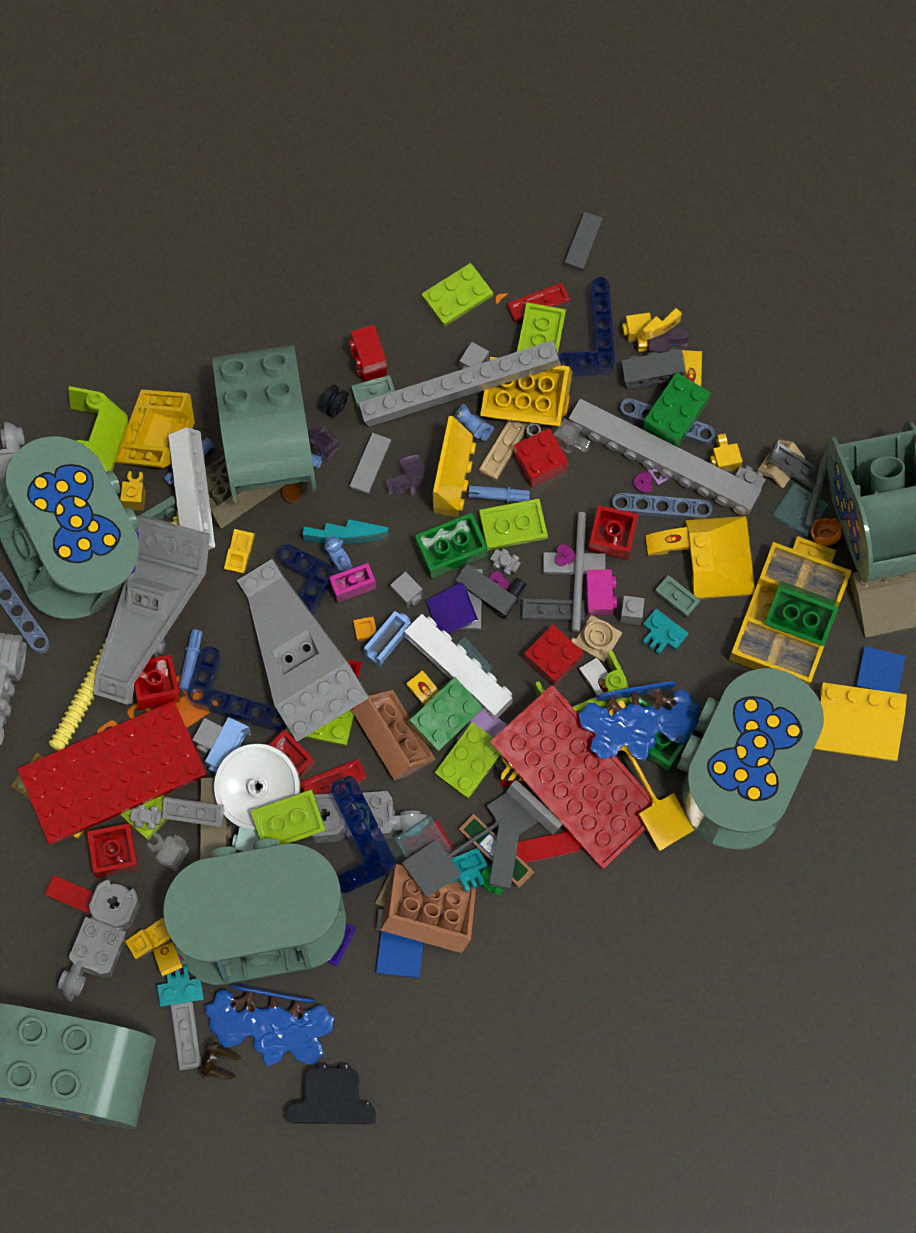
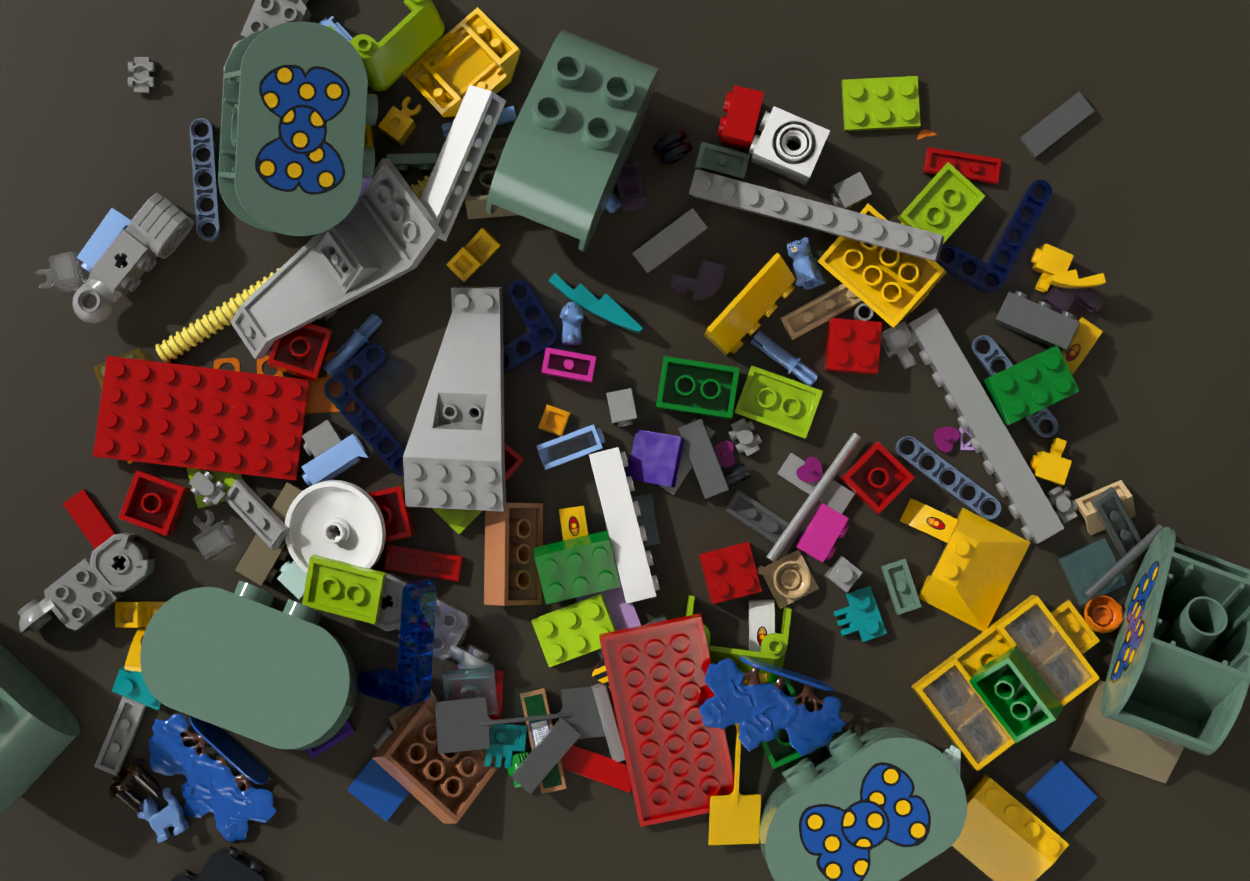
camera: 30 degrees right, 15 degrees up
(257, 1070) = (169, 816): none -> medium blue animal
(412, 352) = (771, 147): none -> white brick

